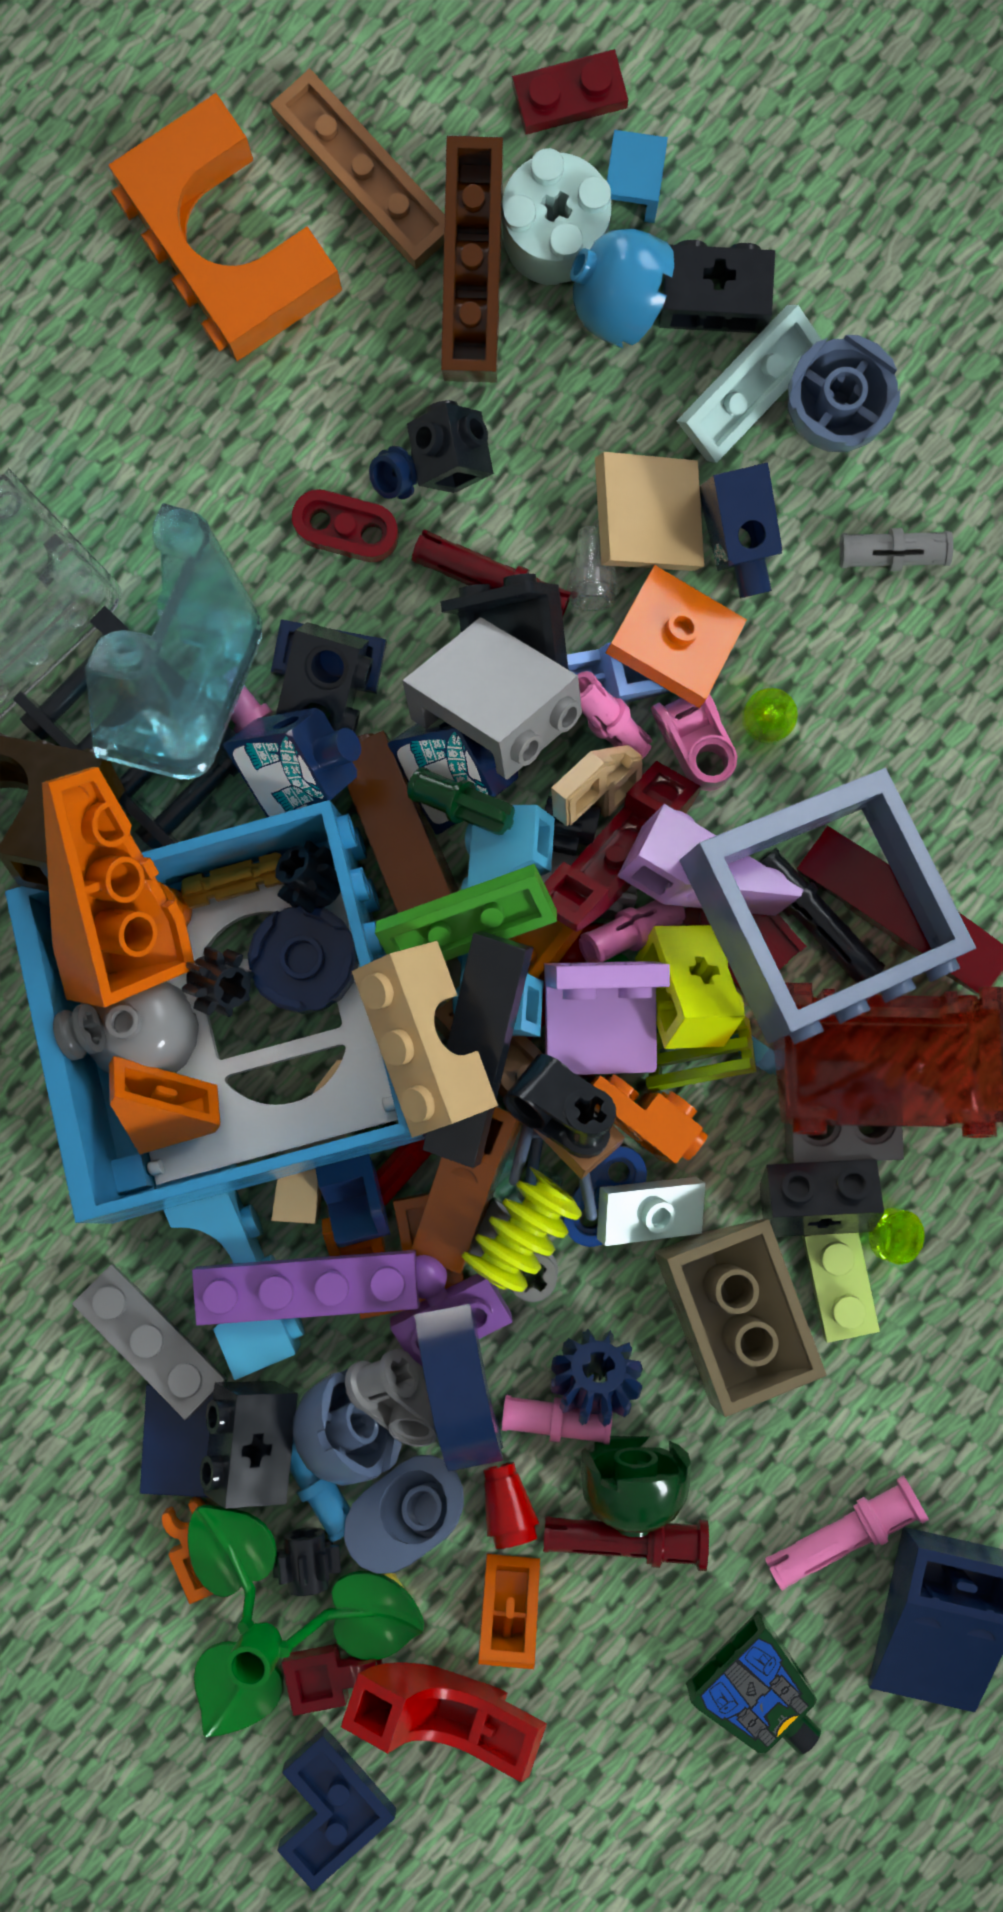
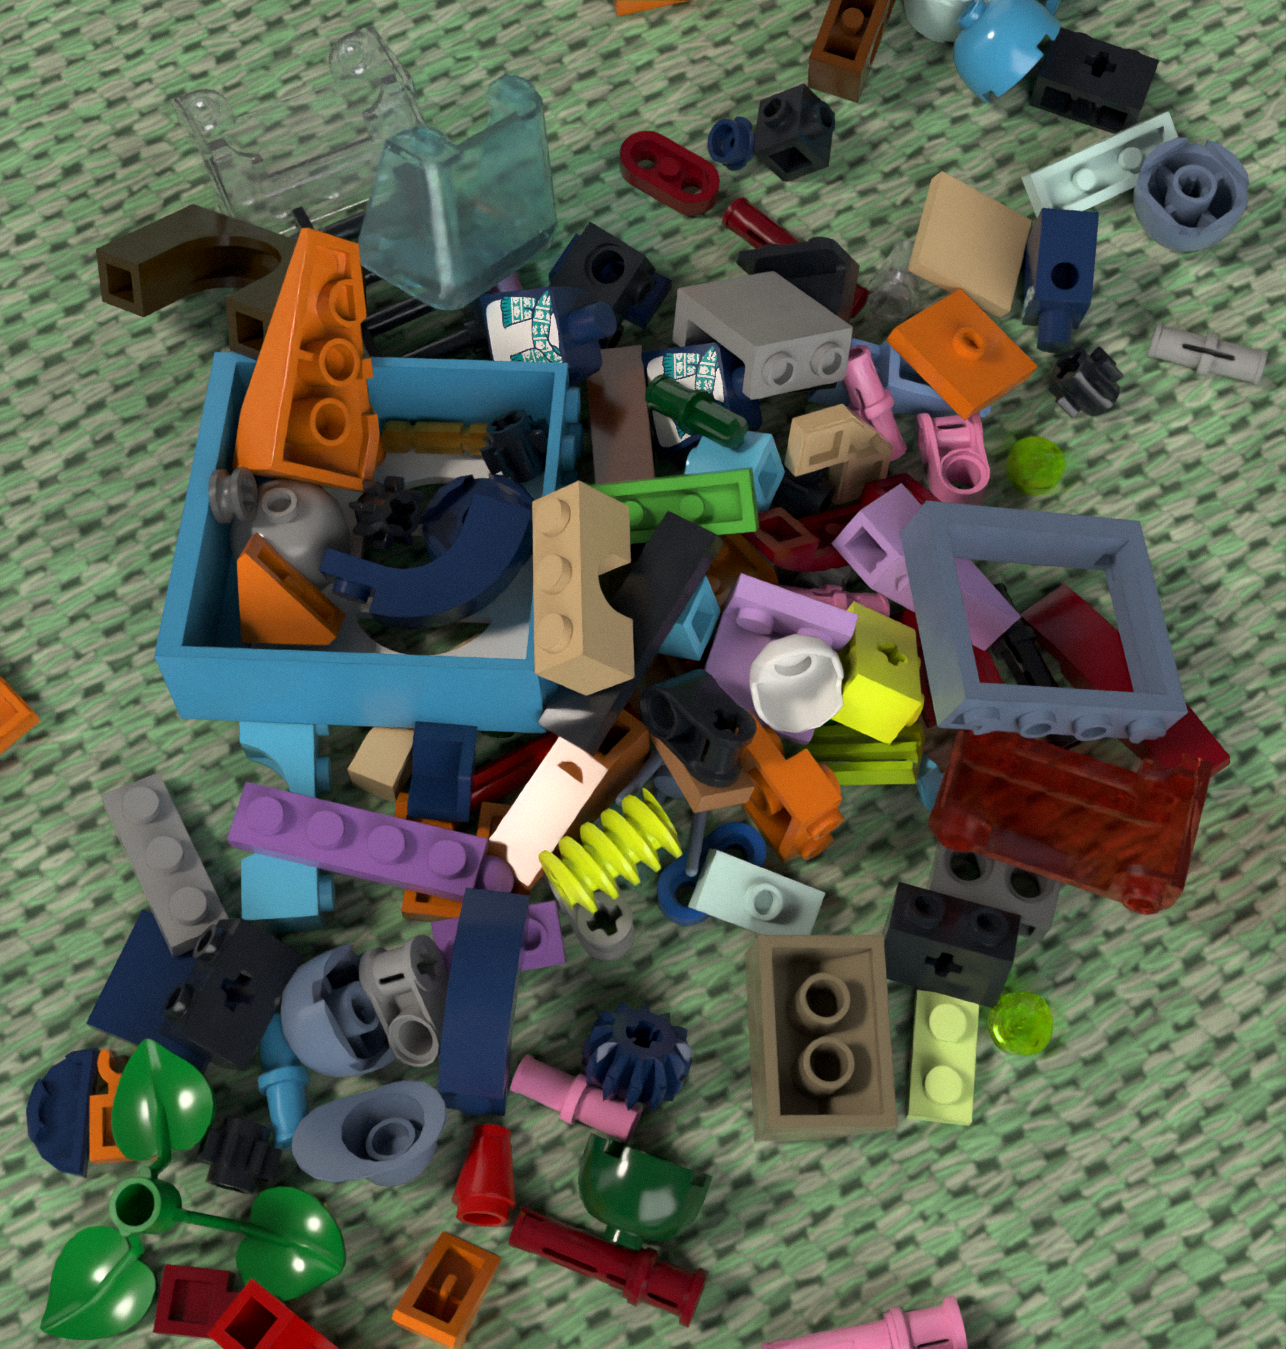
camera: 15 degrees right, 20 degrees down
(147, 1566) = (61, 1112): none -> dark blue tile
(269, 1063) = (452, 586): none -> dark blue arch
(632, 1039) = (796, 683): none -> white hair
(794, 621) = (1085, 382): none -> black gear

